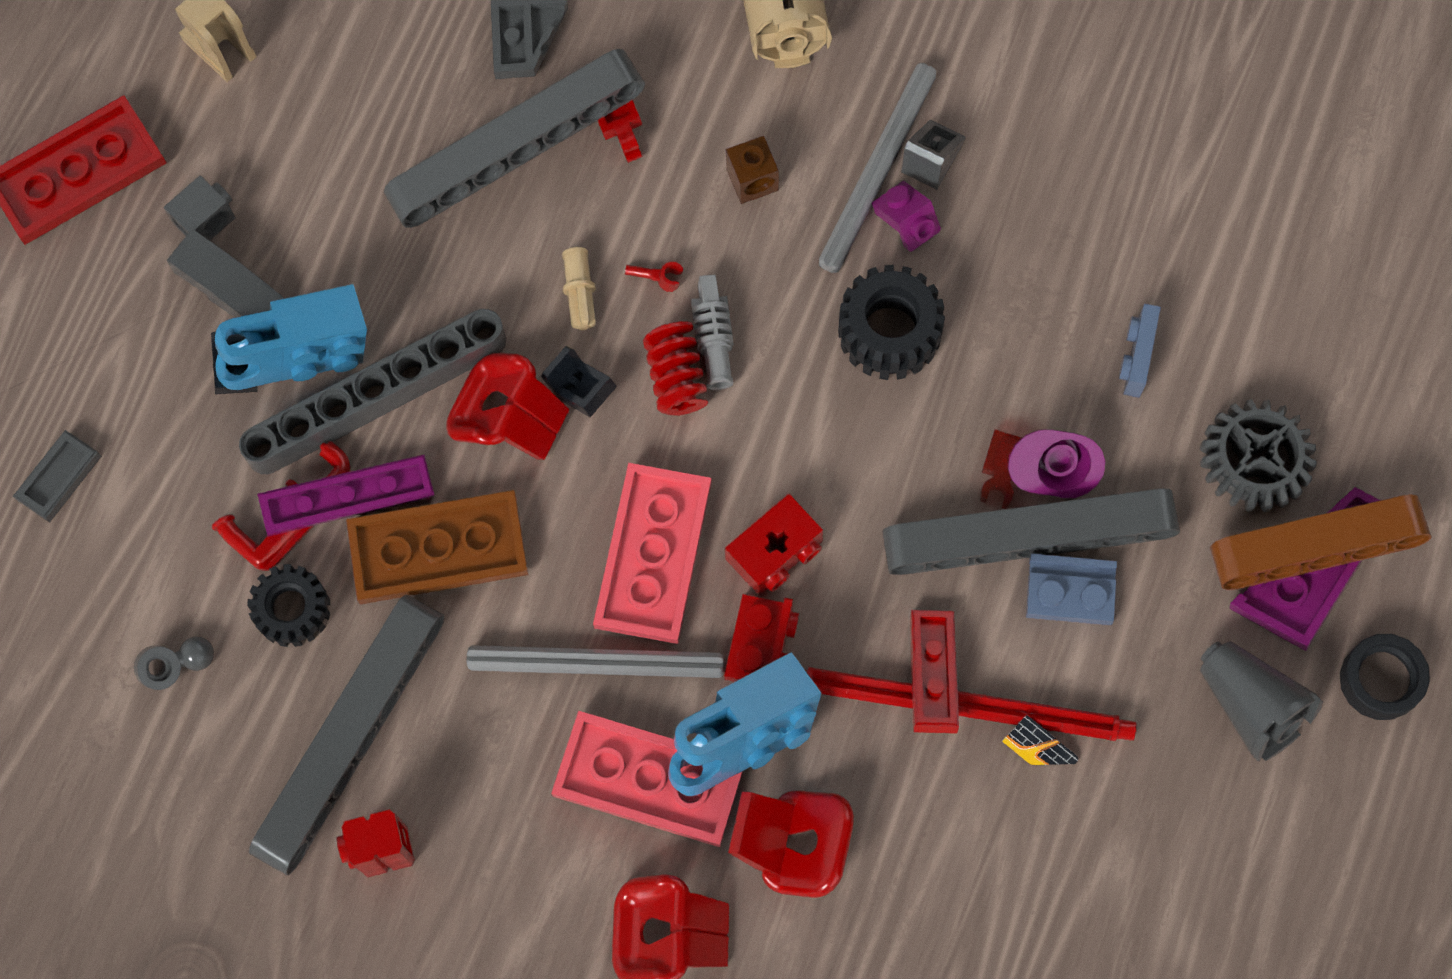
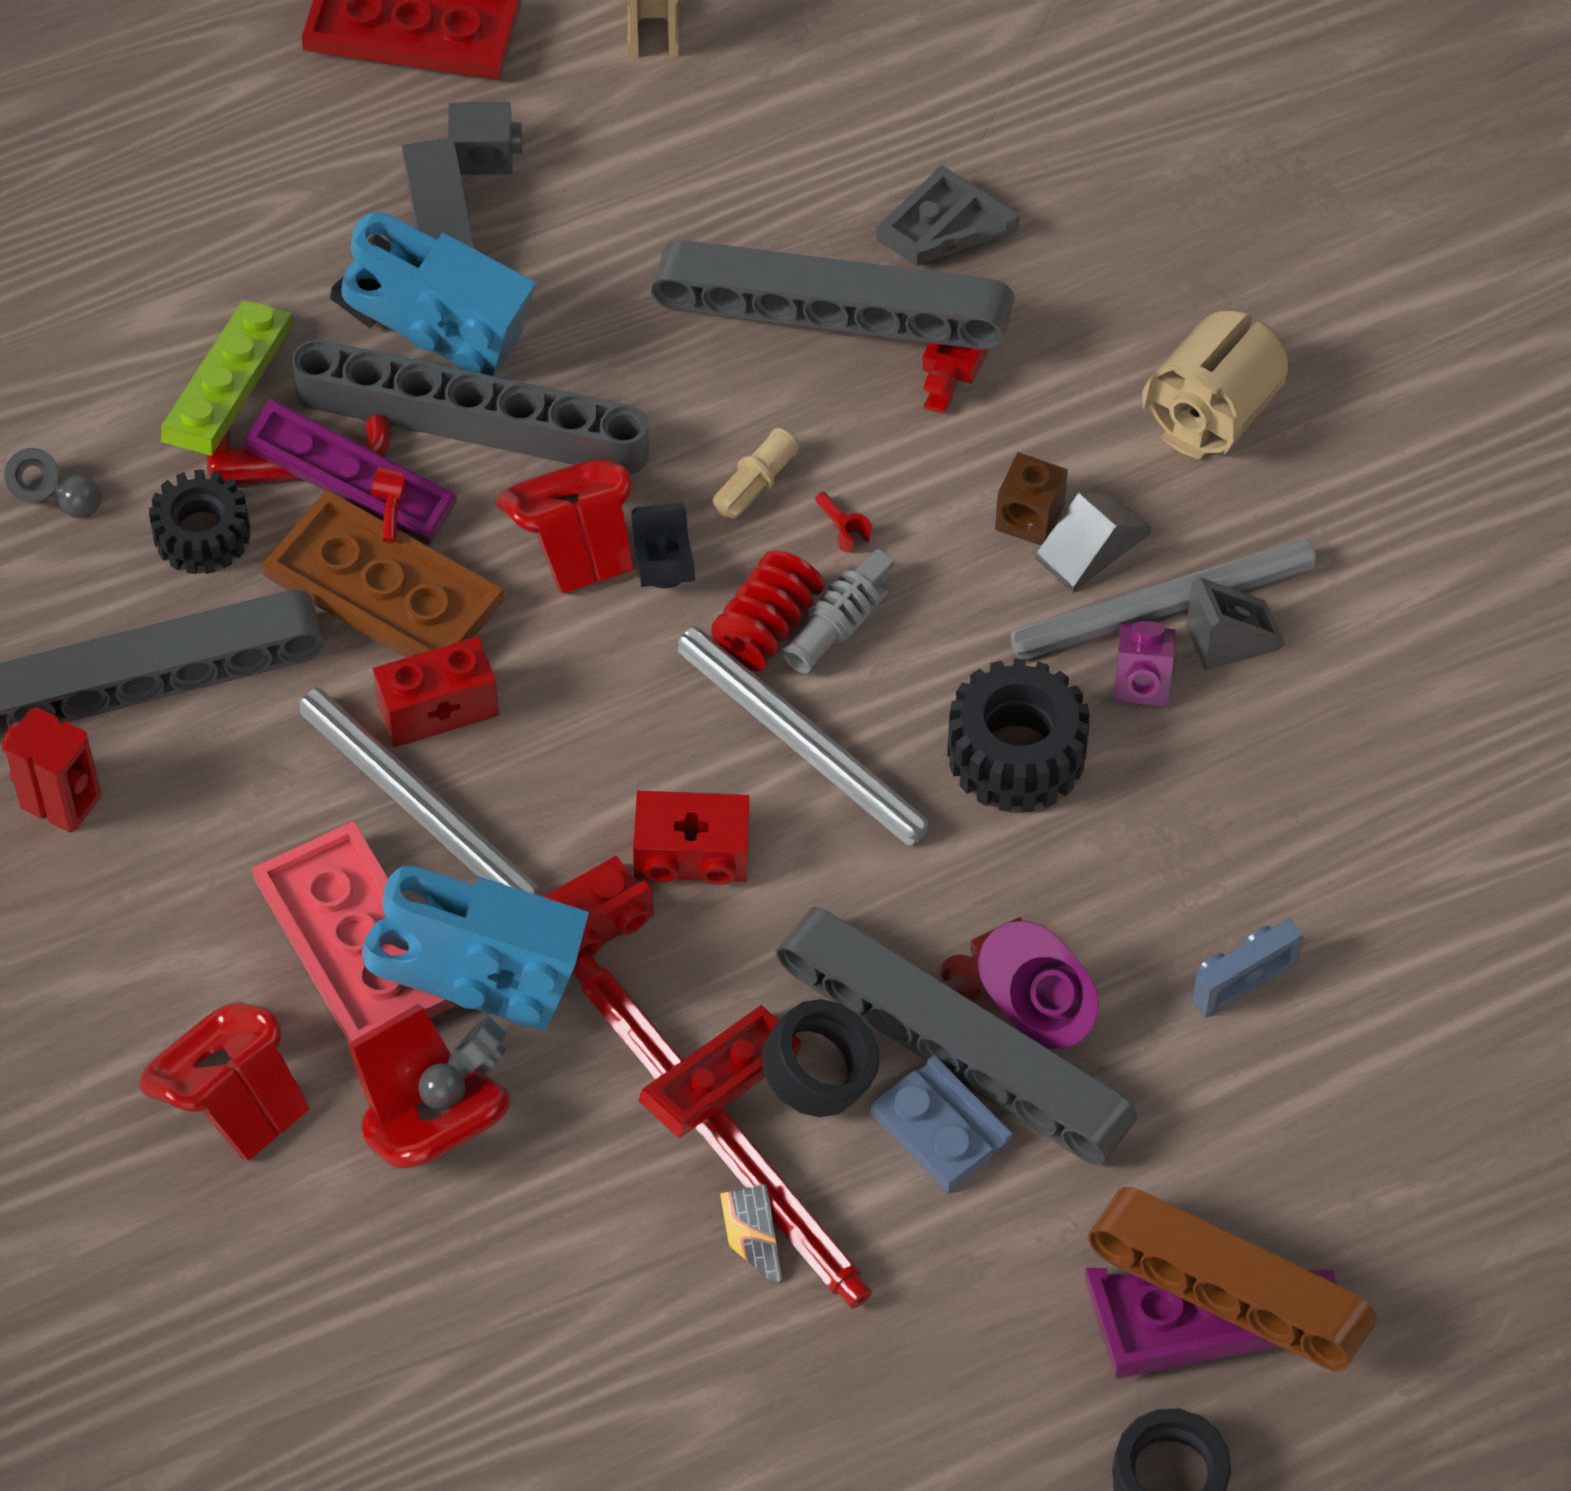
camera: 40 degrees right, 15 degrees down
(57, 476) = (123, 257): dark grey tile -> none
(211, 501) = (226, 377): none -> lime plate
(387, 485) = (390, 486): none -> red hand
(542, 588) = (436, 691): none -> red brick
(652, 553) = (571, 750): coral plate -> none
(766, 426) = (803, 736): none -> light grey axle
(795, 788) = (480, 1049): none -> dark grey plate
(803, 165) = (1090, 538): none -> slope
(997, 592) = (842, 1028): none -> black tyre
(1258, 699) = (1011, 1375): dark grey cone -> none
(1270, 468) = (1305, 1152): dark grey gear -> none

